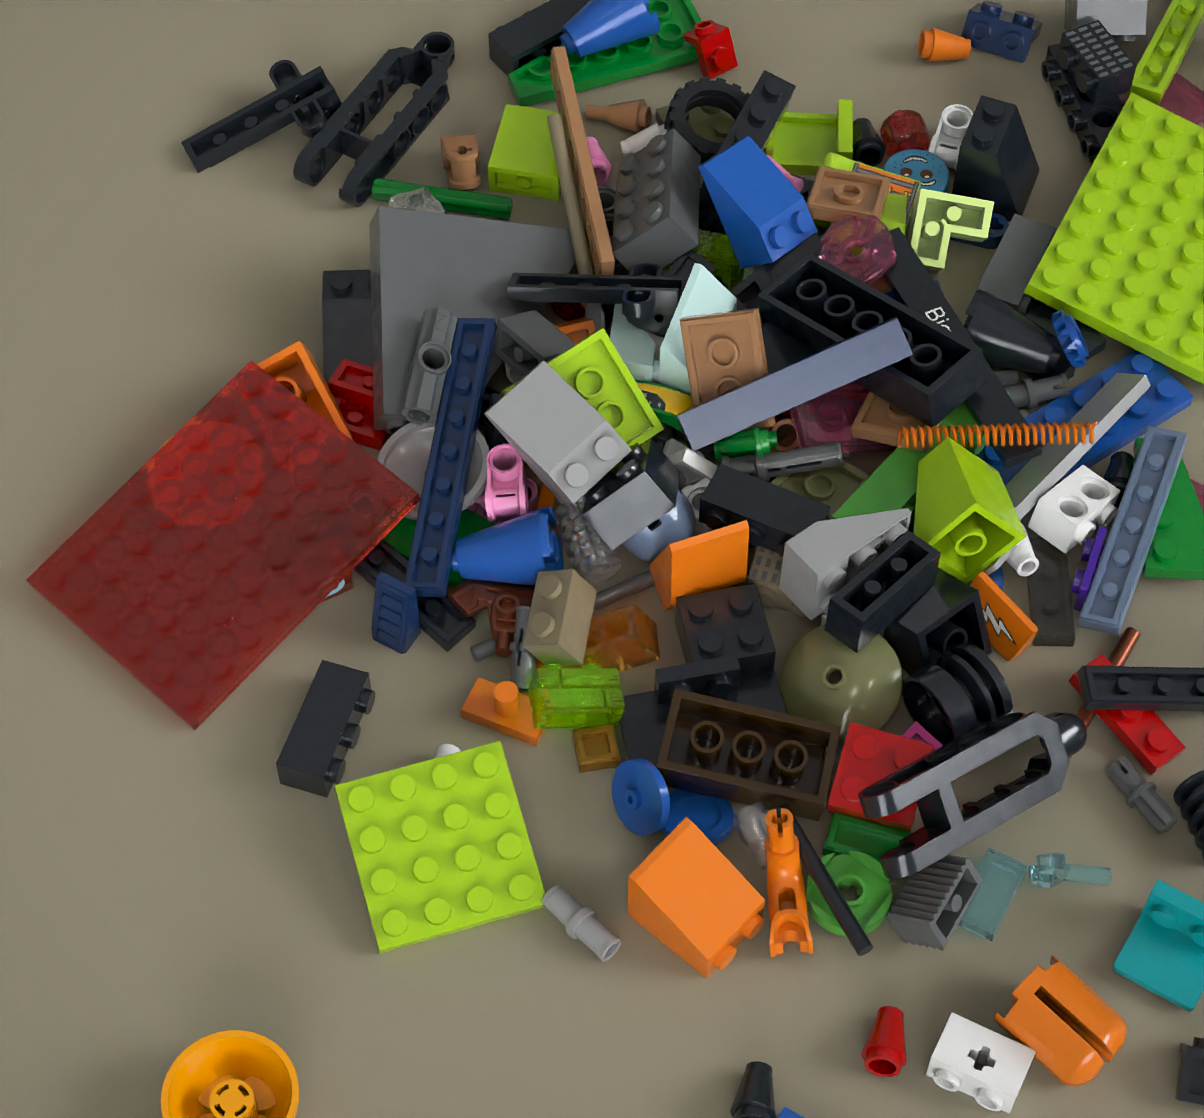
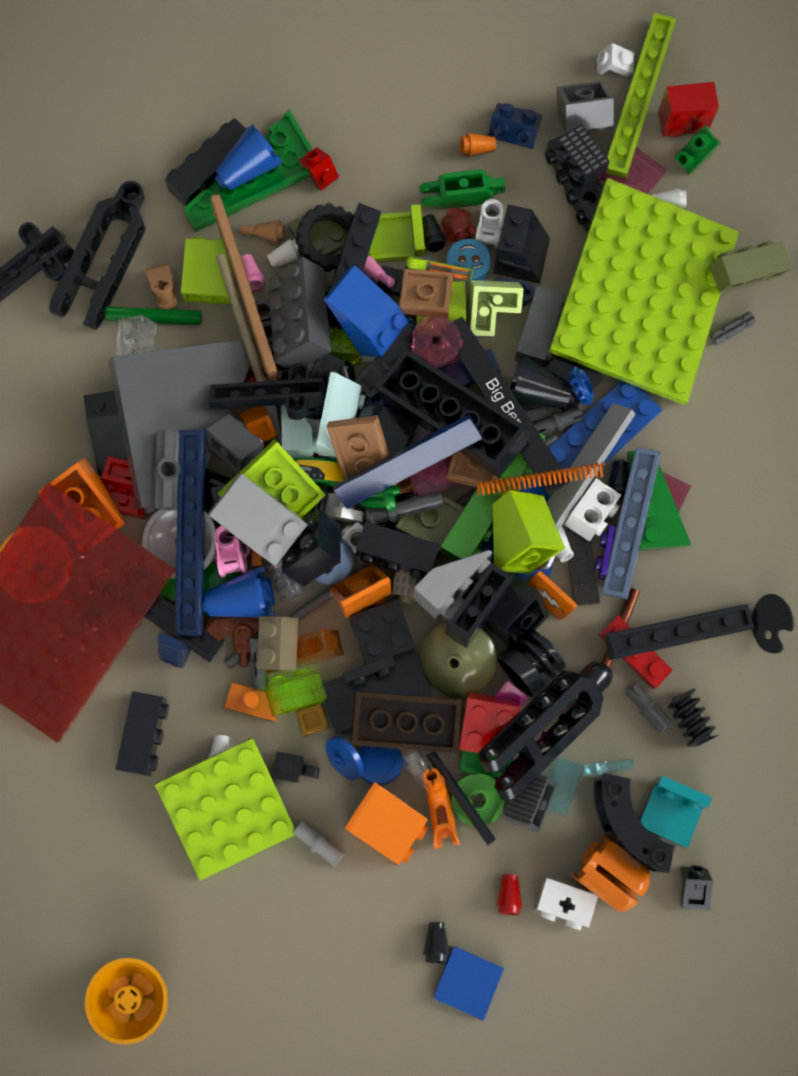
camera: 10 degrees left, 20 degrees up
(553, 808) = (290, 767): none -> black plate
(916, 87) = (461, 189): none -> green hinge
(1095, 945) = (623, 825): none -> black window

